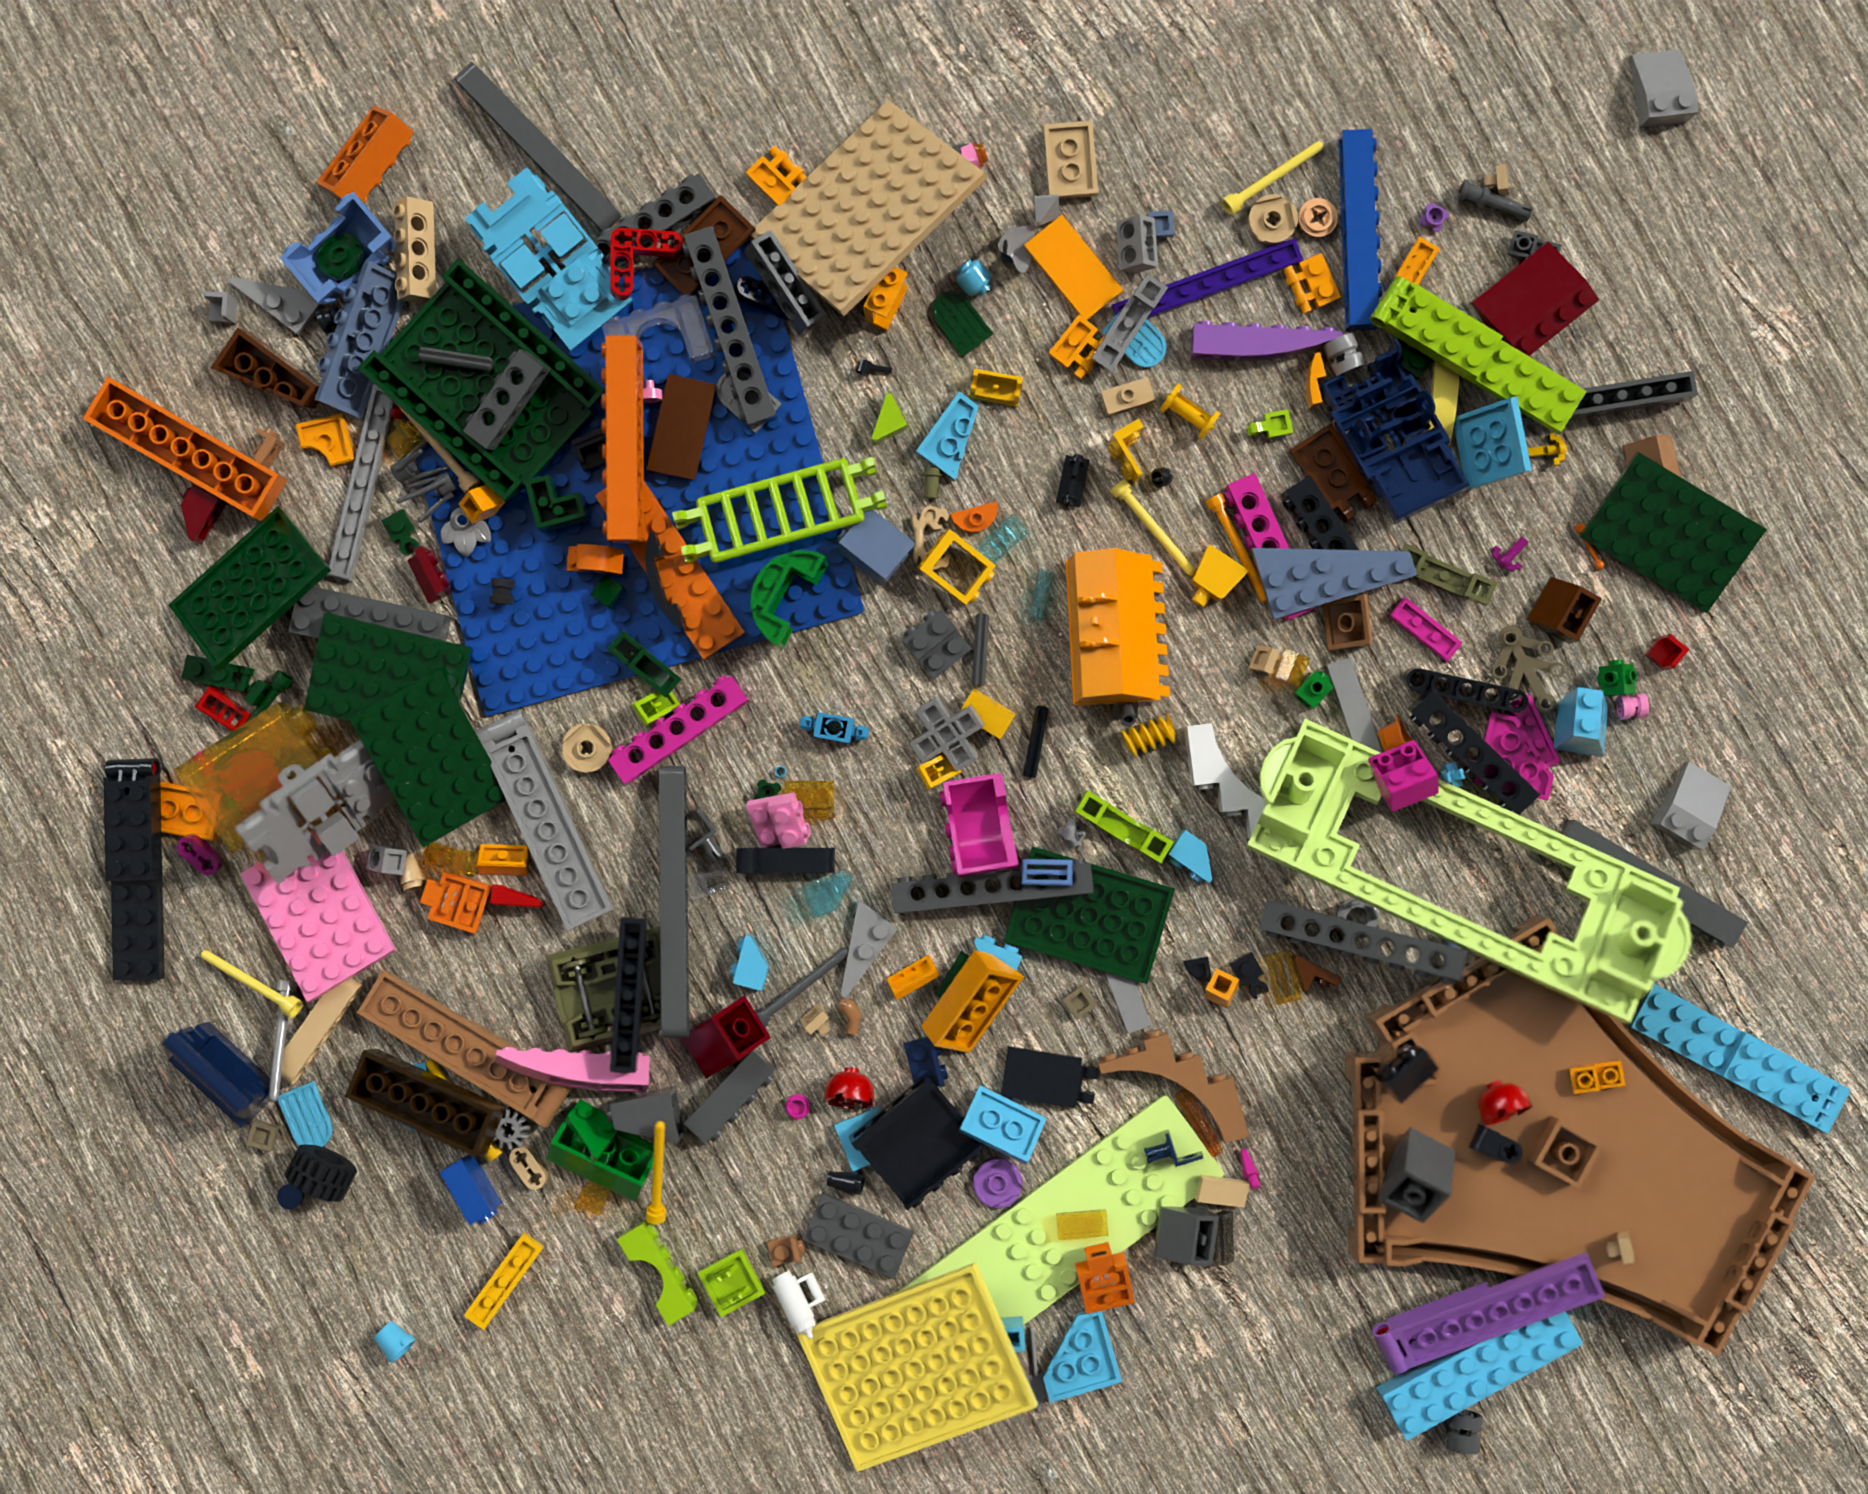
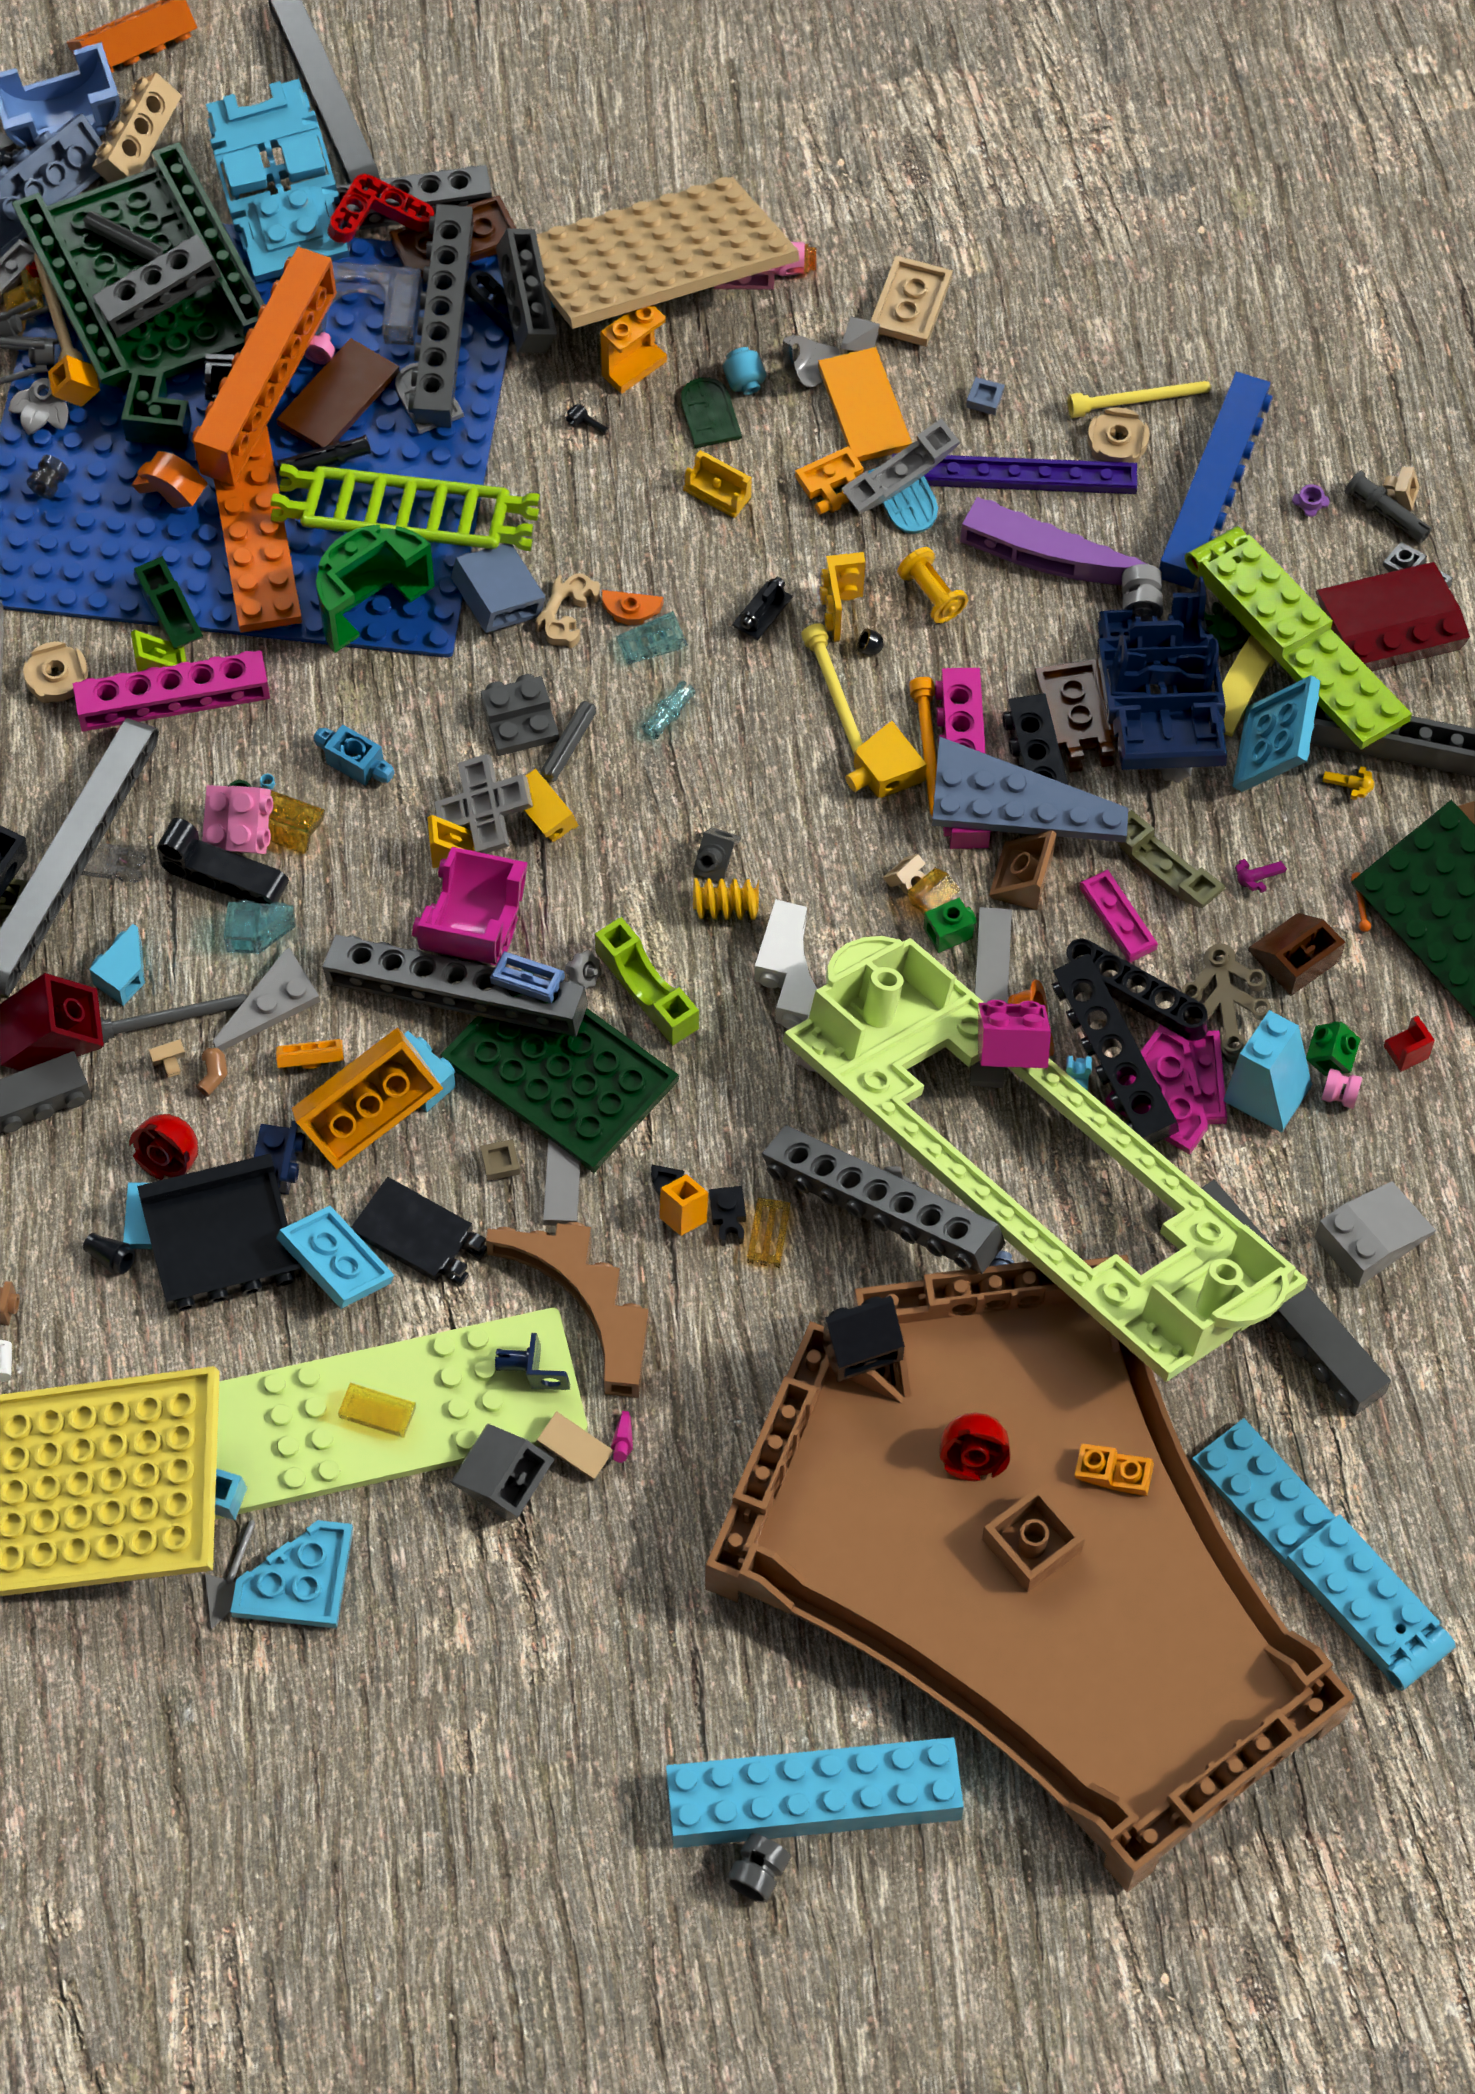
camera: 20 degrees right, 25 degrees down
(340, 256) = (53, 107): dark green tile -> none
(607, 591) = (167, 523): dark green slope -> none
(653, 554) = (236, 496): black slope -> none
(705, 841) = (140, 815): dark grey bracket -> none
(718, 467) = (329, 455): none -> black pin
(771, 181) = (562, 201): light orange plate -> none
(797, 1106) = (94, 1146): dark pink plate -> none
(858, 1235) = (91, 1322): dark grey plate -> none
(889, 421) = (575, 475): lime slope -> none
(931, 483) = (599, 547): olive pin -> none
(935, 554) = (566, 614): yellow window -> none
(948, 437) = (640, 514): medium azure wing -> none
(997, 1182) = (296, 1331): medium lavender tile -> none
(1036, 741) = (586, 860): black axle -> none
(1104, 1279) = (372, 1484): orange piece -> none
(1114, 627) = (741, 765): light orange piece -> none
(1127, 396) = (877, 549): tan plate -> none
(1137, 244) = (948, 398): light grey brick -> none
(1191, 854) = (716, 1046): medium azure slope -> none
(1198, 1122) = (583, 1357): clear orange axle -> none
(1224, 1239) = (550, 1503): clear smoke plate -> none
(1275, 425) = (1028, 636): lime plate -> none
(1307, 971) = (806, 1231): reddish brown slope -> none
(1315, 374) = (1097, 602): light orange slope -> none
(1318, 206) = (1180, 445): light nougat gear -> none
(1318, 281) = (1146, 515): light orange plate -> none
(1417, 261) = (1276, 532): light orange plate -> none
(1418, 1175) = (825, 1479): dark grey slope -> none
(1485, 1313) = (851, 1709): medium lavender hinge -> none
(1493, 1143) = (942, 1490): black piece -> none
(1621, 1247) = (1061, 1685): tan tile -> none

